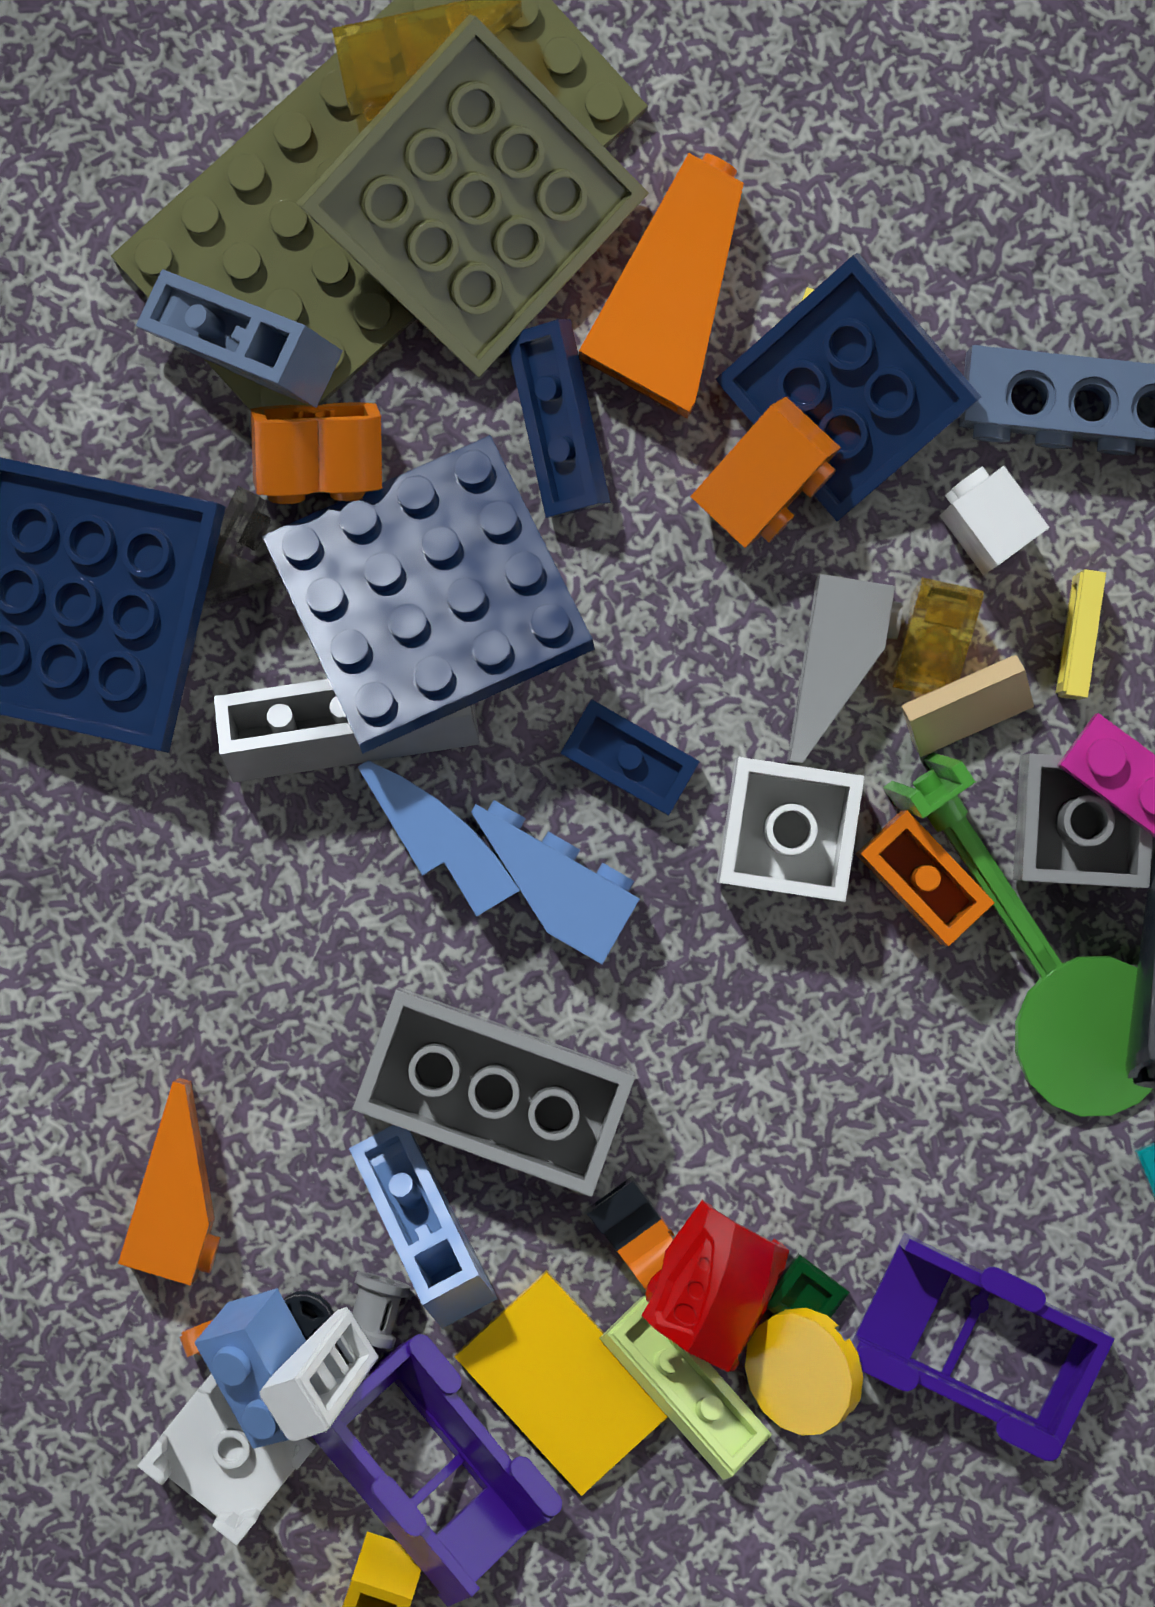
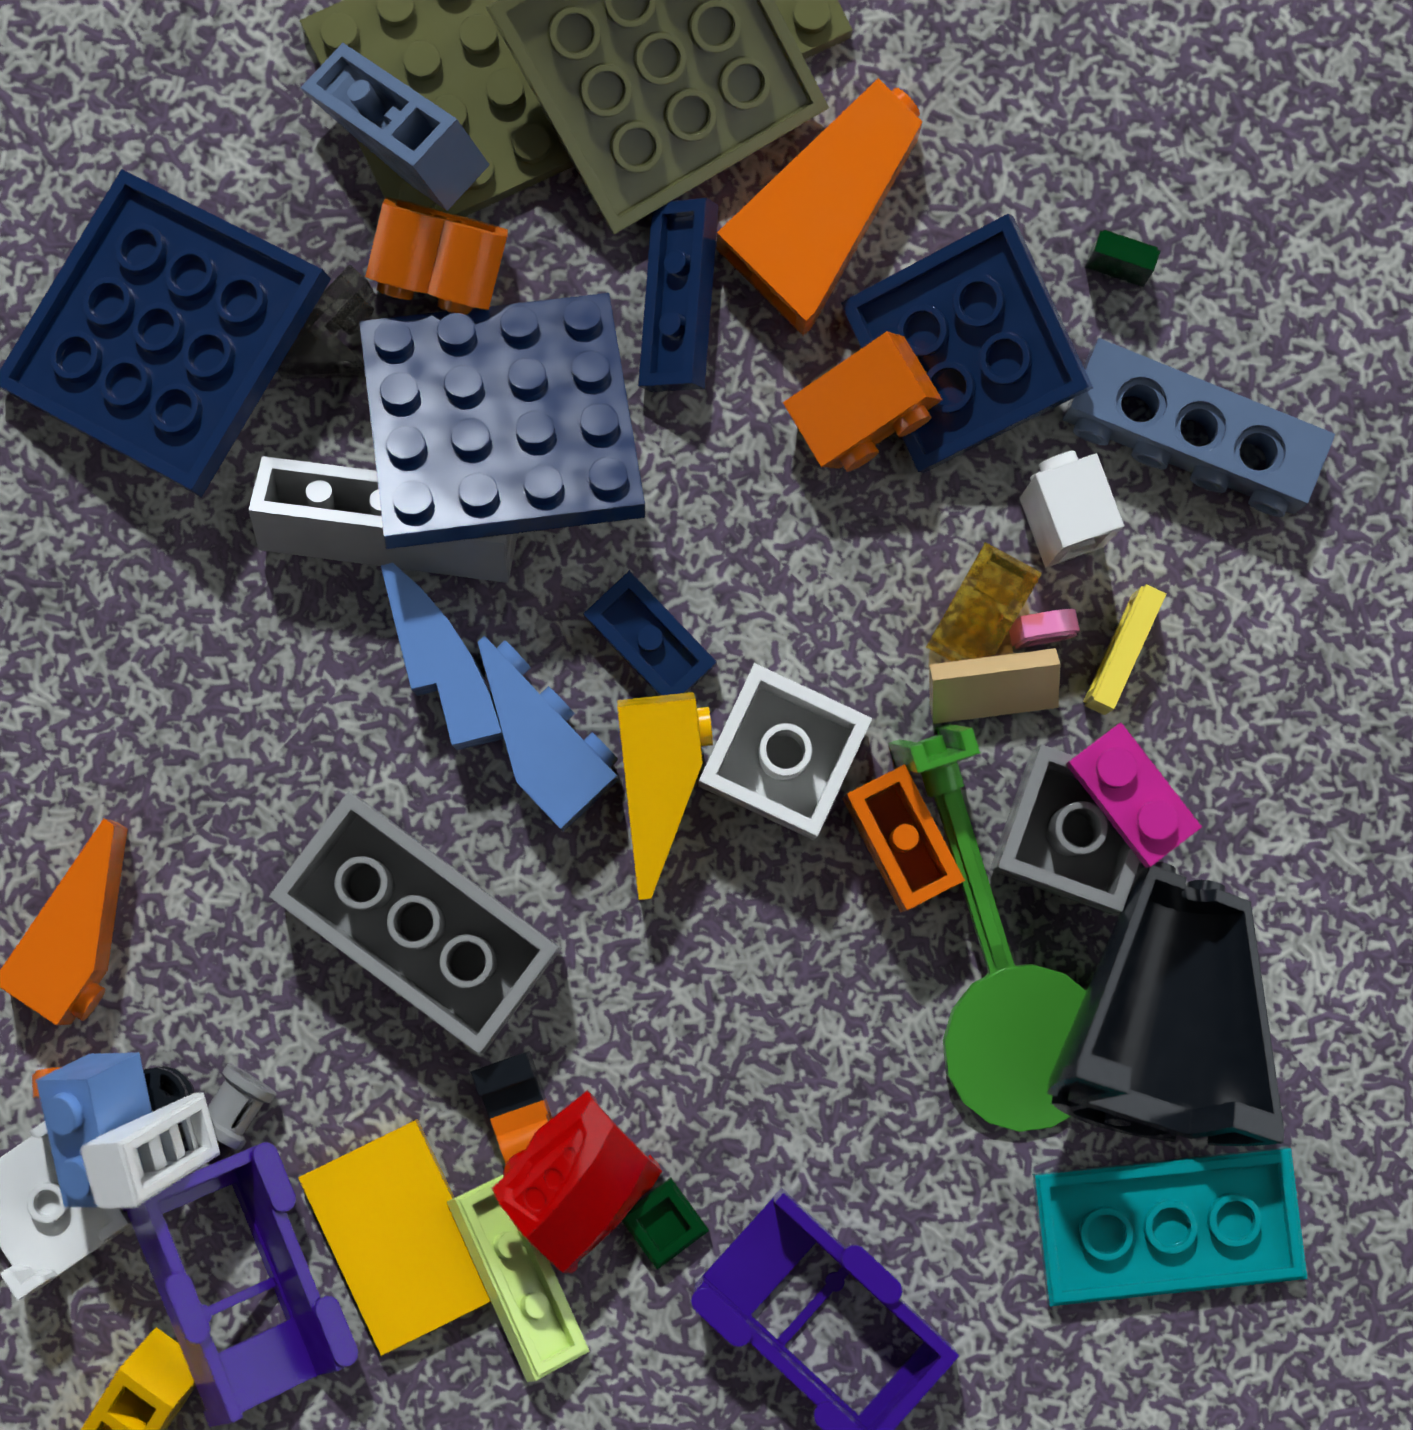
camera: 15 degrees right, 5 degrees down
(422, 1226) = (306, 1039): medium blue slope -> none
(680, 881) = (660, 767): none -> yellow slope
(803, 1371) = (639, 1296): yellow tile -> none
(842, 643) = (889, 591): light grey slope -> none
(972, 255) = (1122, 258): none -> dark green tile
(1000, 636) = (1044, 628): none -> bright pink tile

